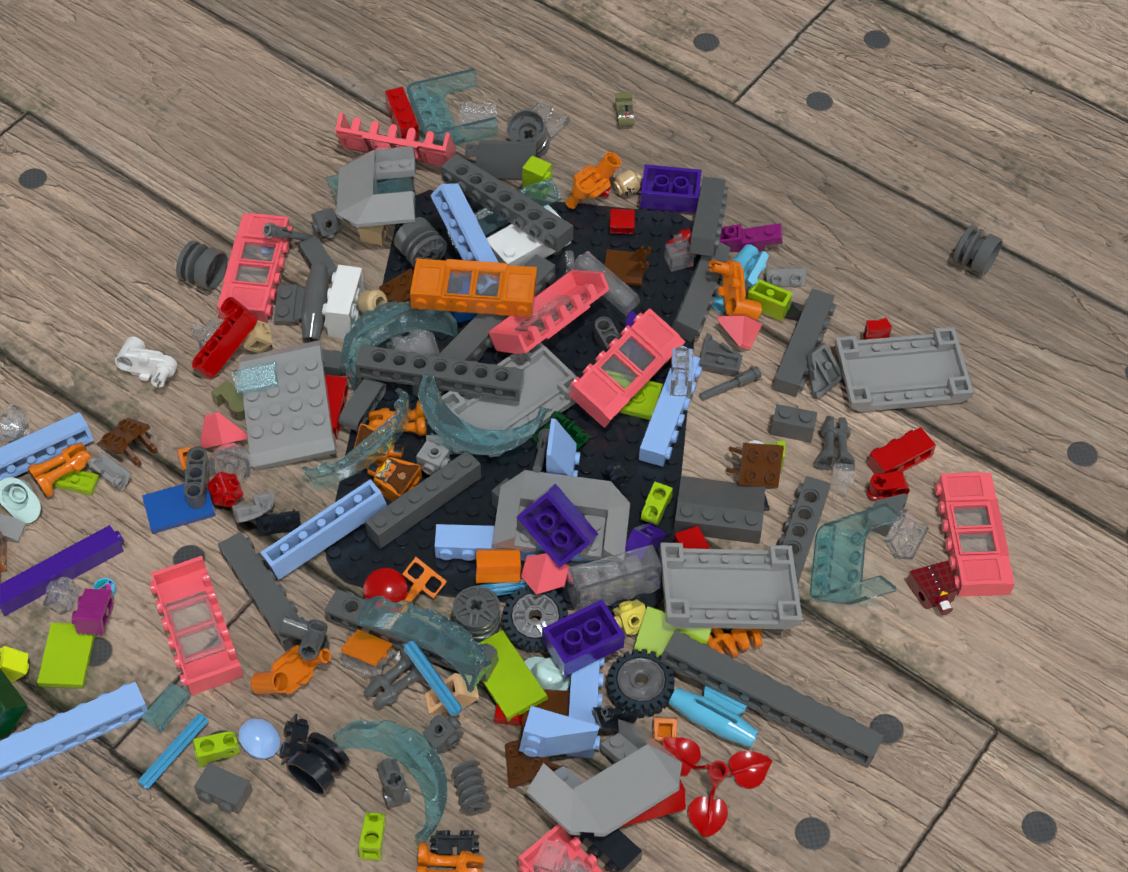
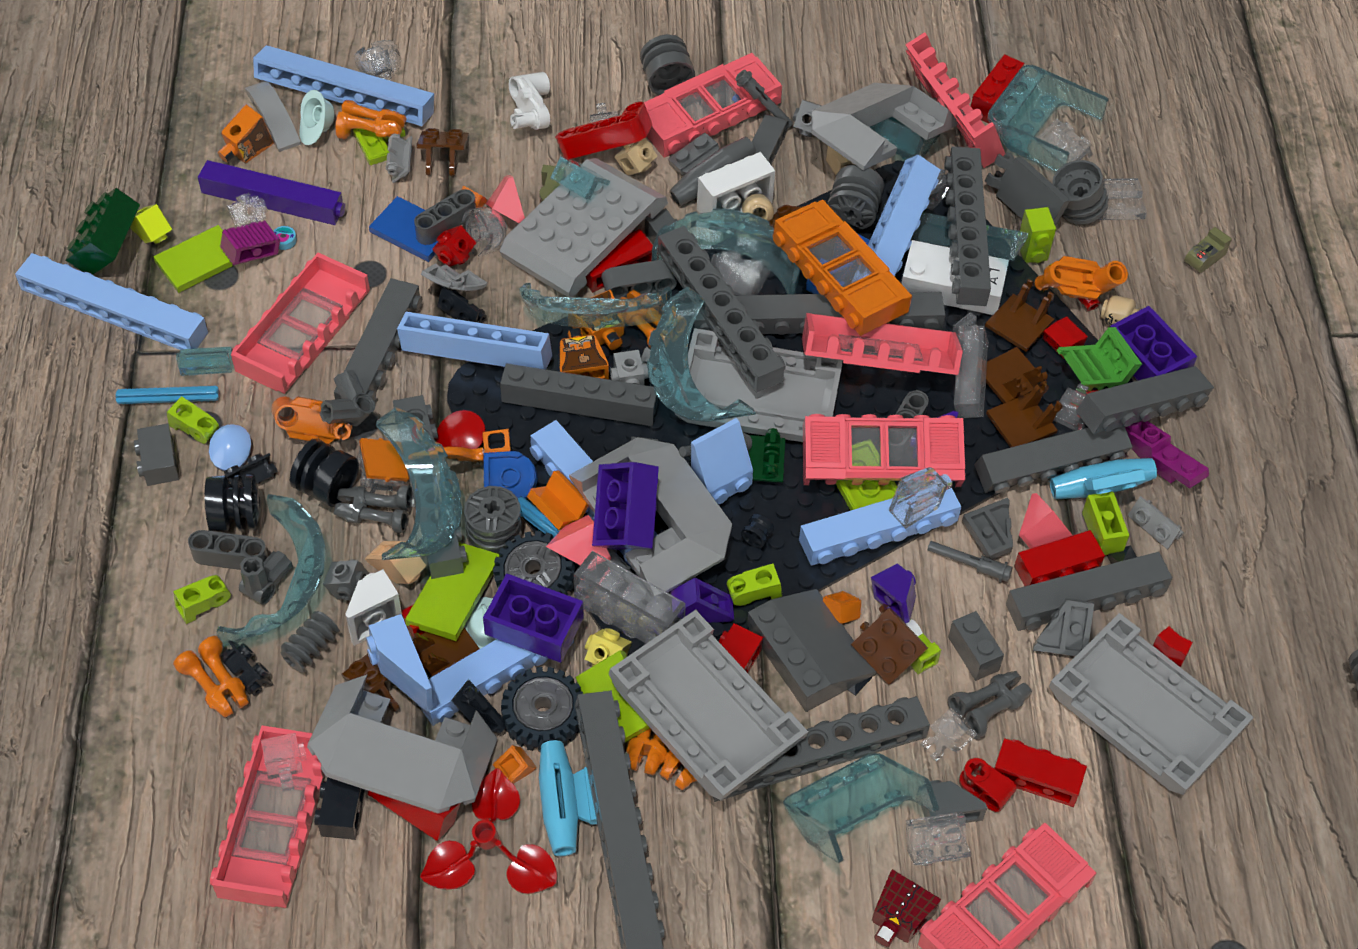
camera: 50 degrees right, 0 degrees up
(345, 690) = (323, 471): none -> black wheel
(347, 803) = (218, 543): none -> dark grey beam
(433, 678) = (388, 527): dark azure axle -> none
(447, 582) = (510, 471): none -> blue tile
(481, 727) = (371, 603): none -> white slope
(590, 234) = (1019, 321): none -> reddish brown plate
(661, 214) = (1103, 364): none -> bright green plate
(661, 286) = (1023, 420): none -> reddish brown plate
(705, 470) = (843, 606): none -> orange slope
(722, 433) = (895, 589): none -> dark purple slope
(734, 289) = (1061, 497): orange piece -> none
(772, 341) = (1059, 558): none -> red brick

